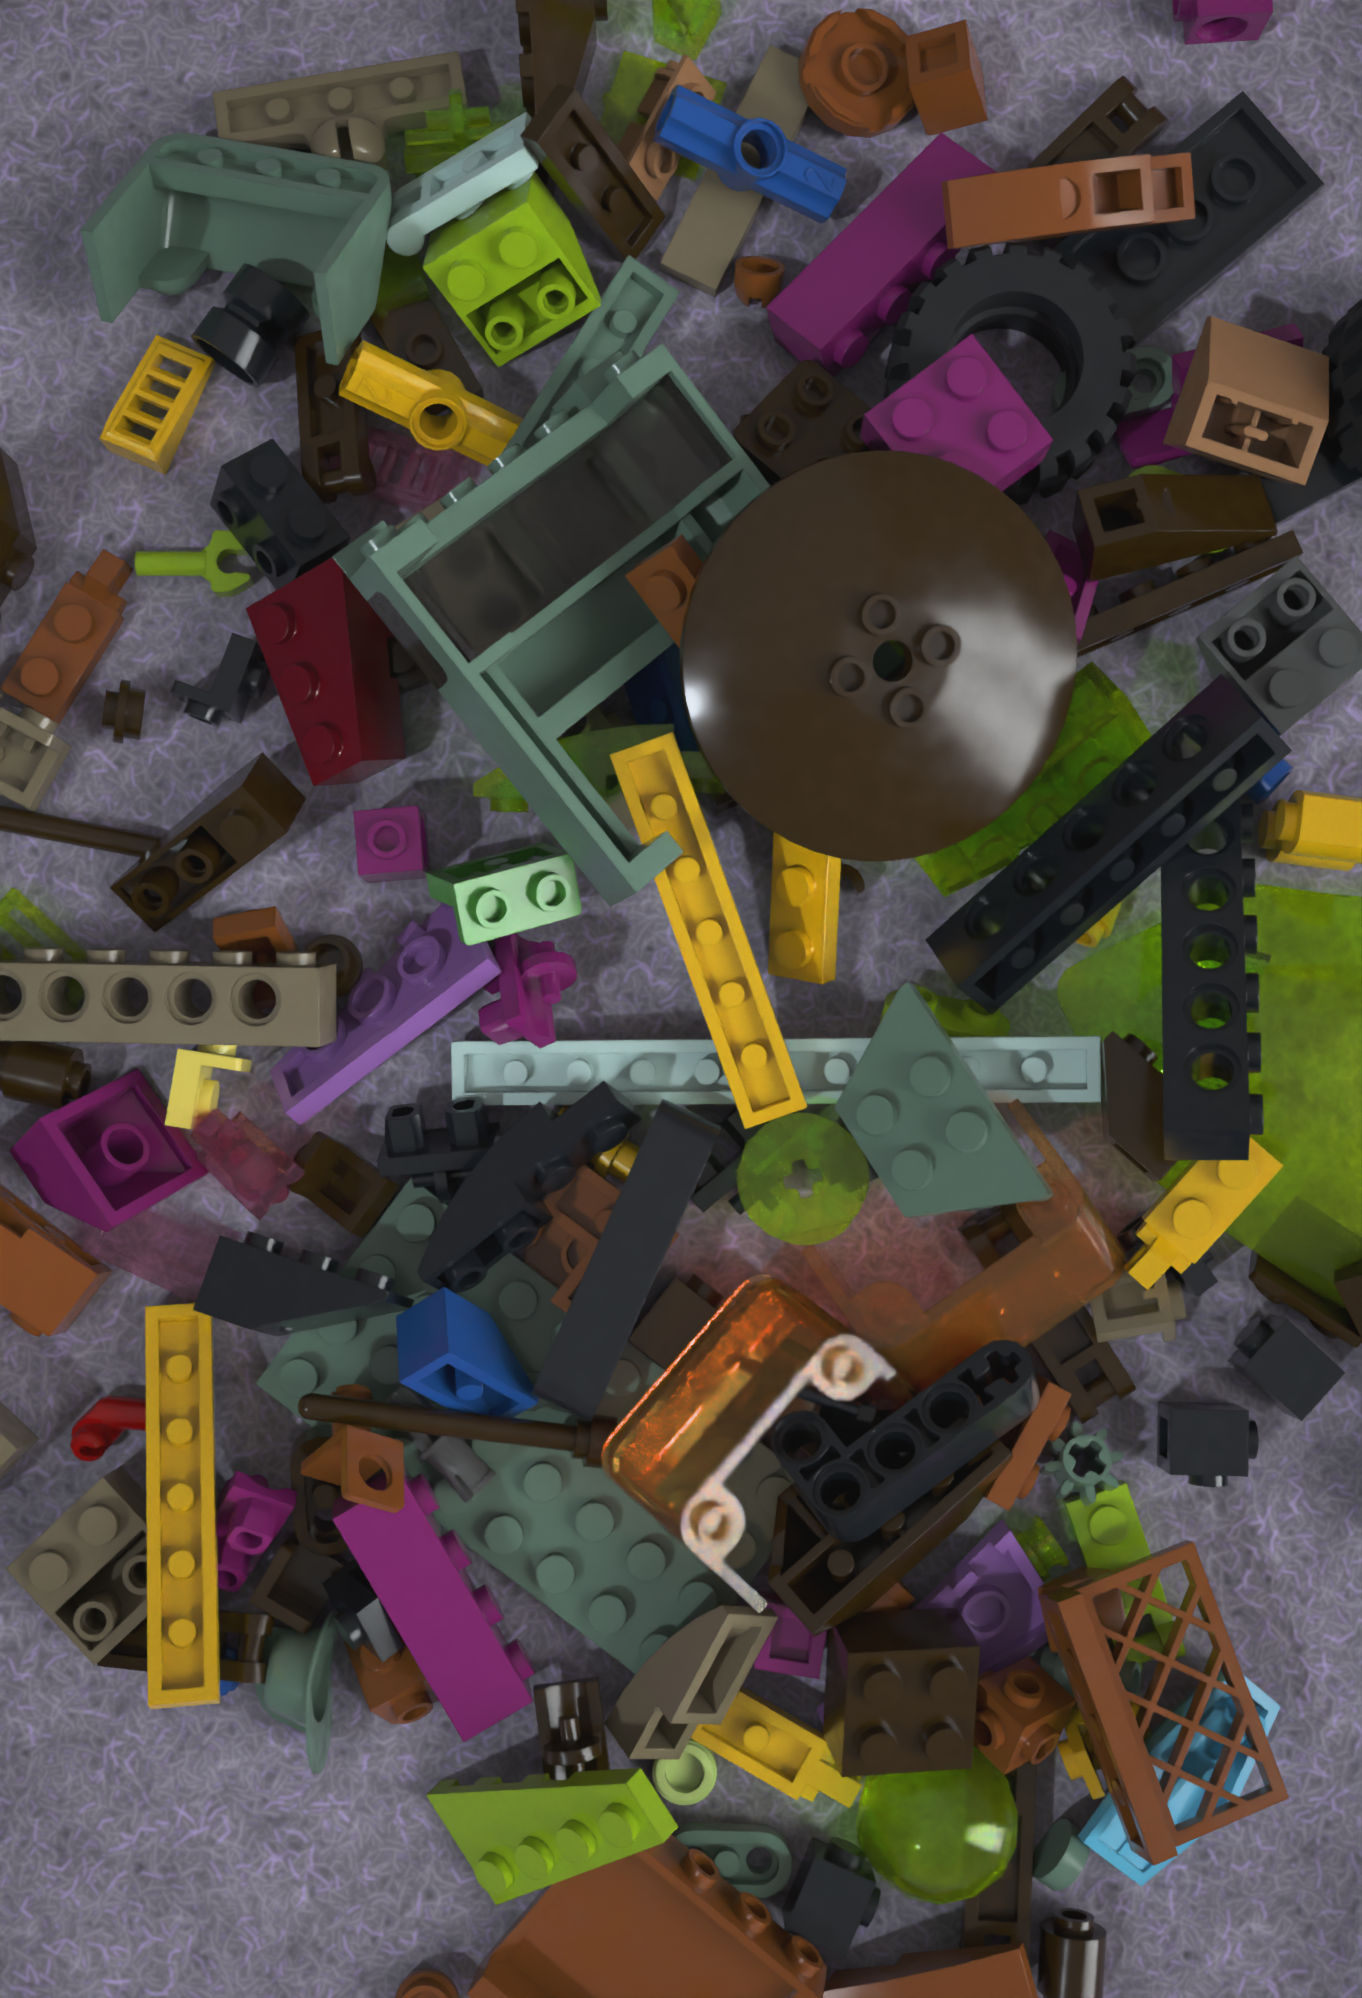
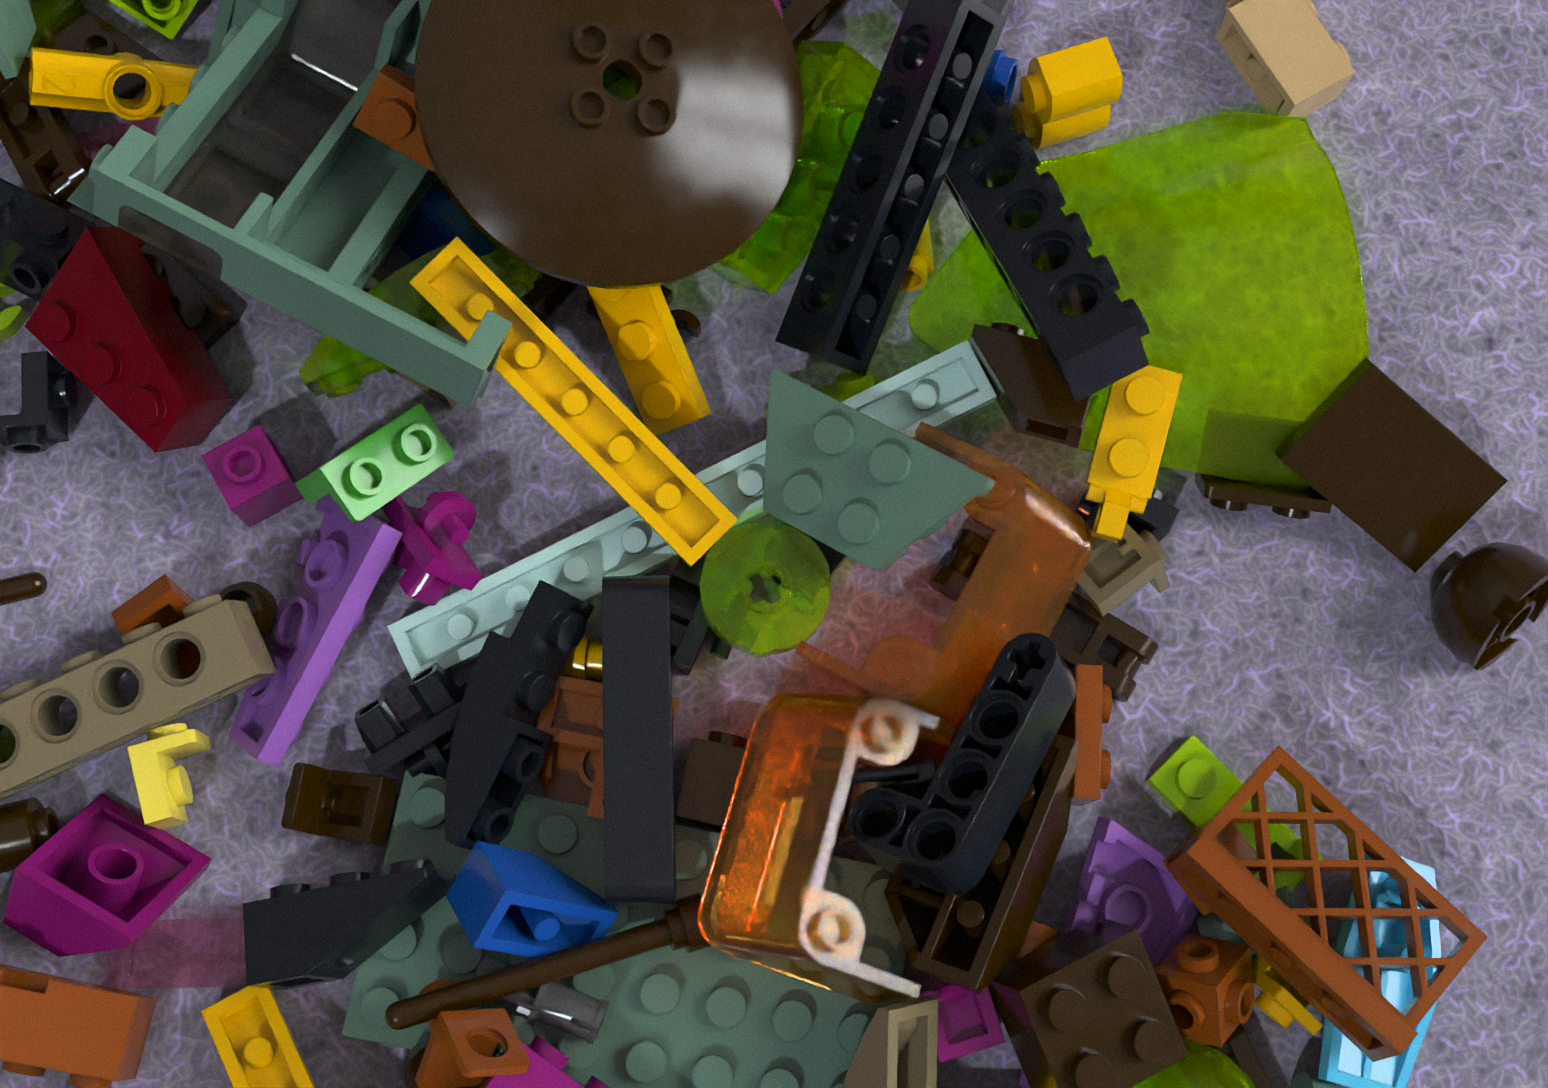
camera: 30 degrees left, 10 degrees down
(211, 842) = (80, 554): dark brown slope -> none
(245, 1161) = (238, 824): clear pink hips -> none
(1041, 1547) = (1150, 825): clear neon green bush -> none
(1098, 1463) = (1144, 752): sand green gear -> none
(1205, 1441) = (1242, 661): black brick -> none
(1284, 1365) = (1275, 559): black brick -> none

